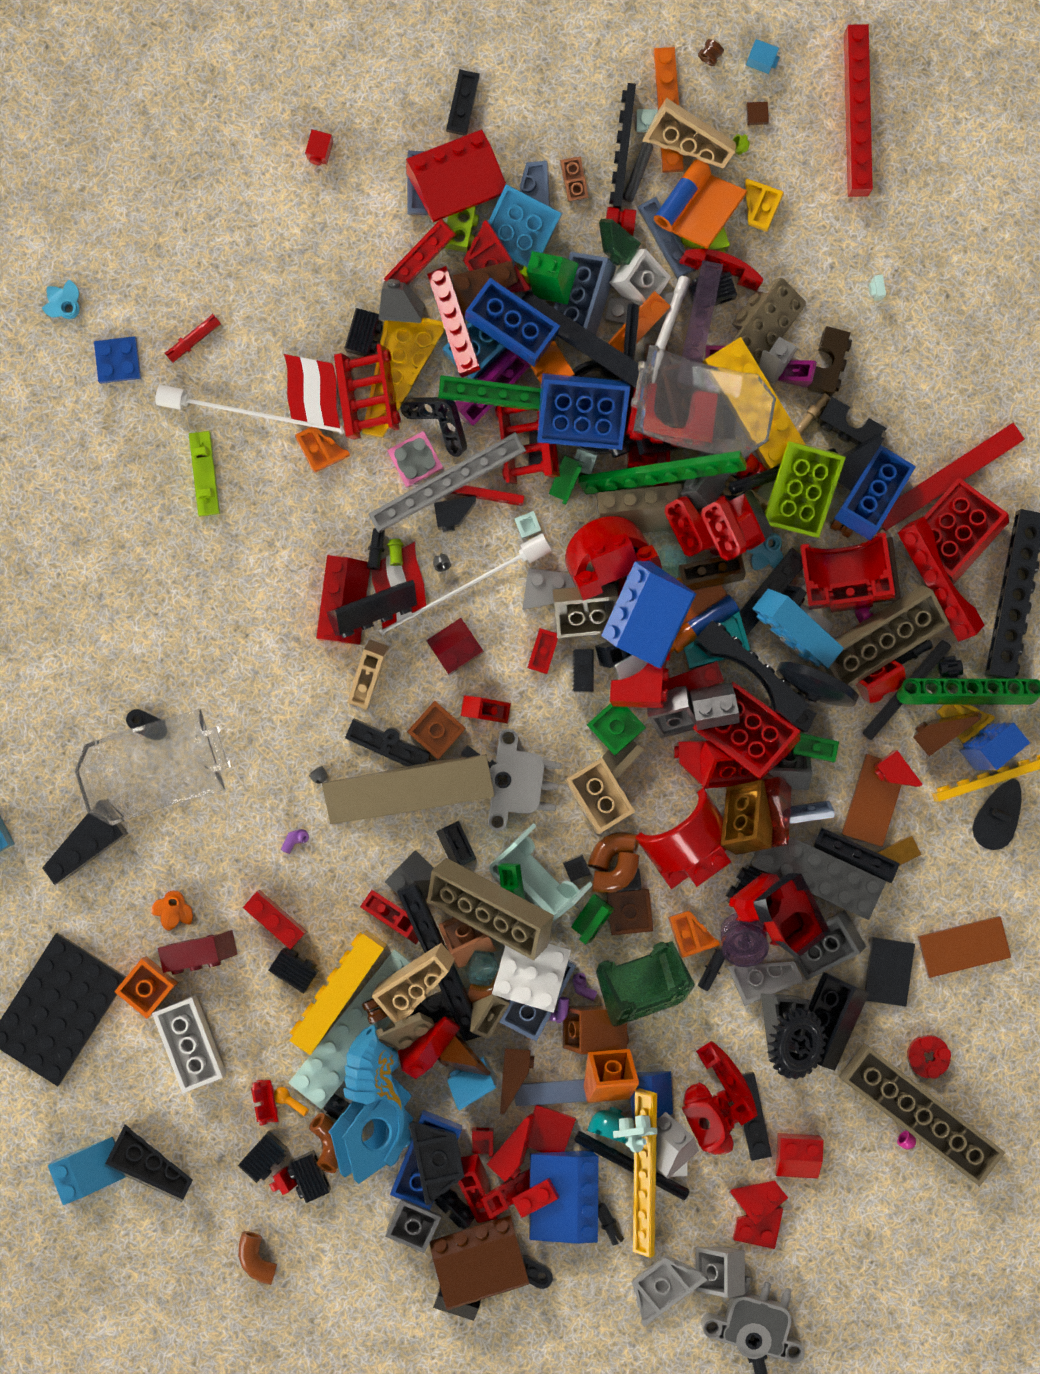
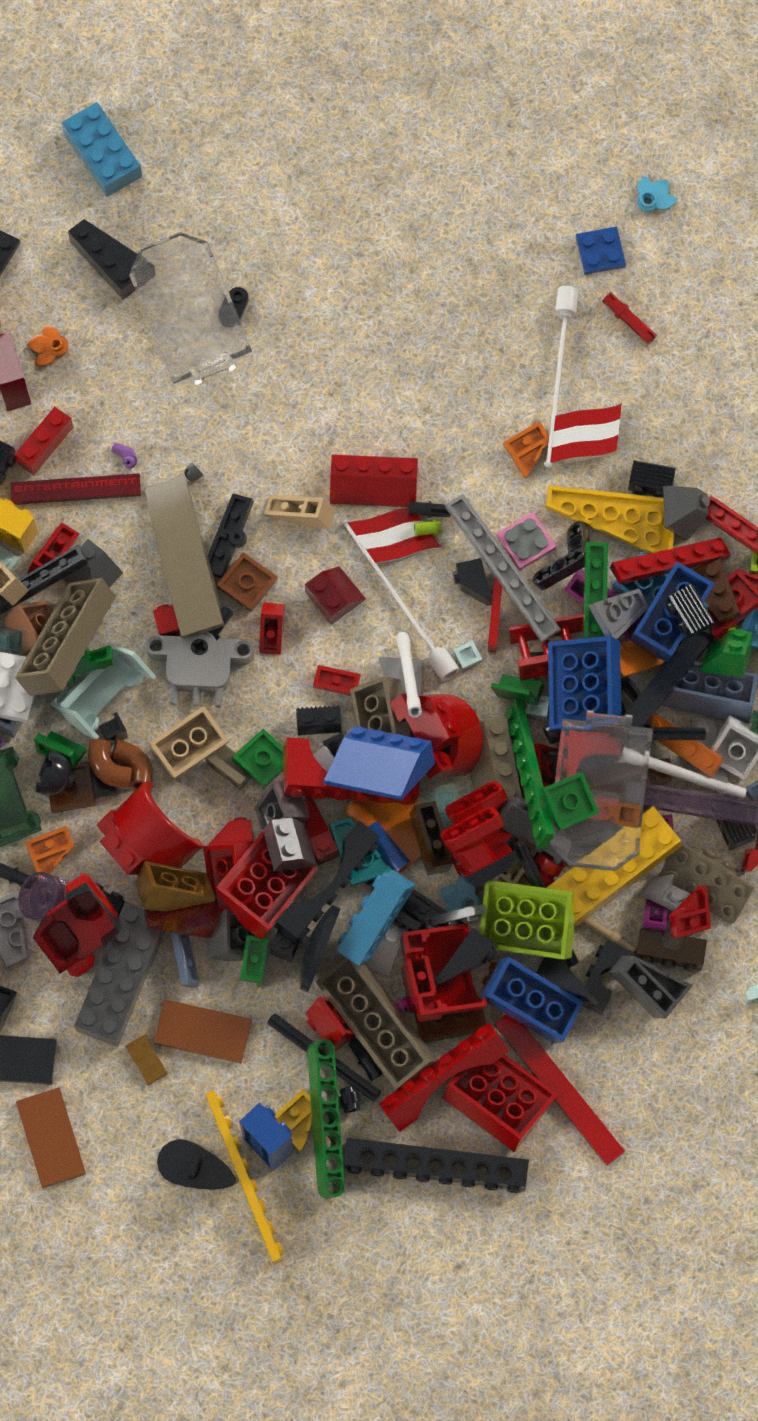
camera: 85 degrees right, 15 degrees down
(204, 473) = (492, 340): lime hinge -> none
(325, 891) = (76, 489): none -> dark red tile
(348, 385) = (585, 468): red fence -> none
(373, 608) = (365, 503): black slope -> none
(441, 563) = (420, 574): dark grey hinge -> none
(456, 844) = (130, 611): black slope -> none
(471, 810) = (166, 621): none -> red brick
(511, 372) = (619, 612): none -> light grey wing
(520, 303) = (689, 611): none -> black brick
(591, 575) = (413, 700): none -> white piece
(624, 926) = (54, 775): none -> black cylinder
(705, 434) = (570, 801): none -> green plate
(721, 383) = (624, 815): none -> dark orange plate
(791, 556) = (452, 918): none -> dark grey hinge
(801, 337) = (691, 914): none -> red wing
(831, 545) = (471, 954): none -> black slope
(834, 948) = (46, 991): dark grey slope -> none
(856, 855) = (142, 1012): black plate -> none
(869, 378) = (650, 986): none -> dark grey wedge
(896, 770) = (235, 1045): red slope -> none
(940, 731) = (278, 1088): reddish brown slope -> none

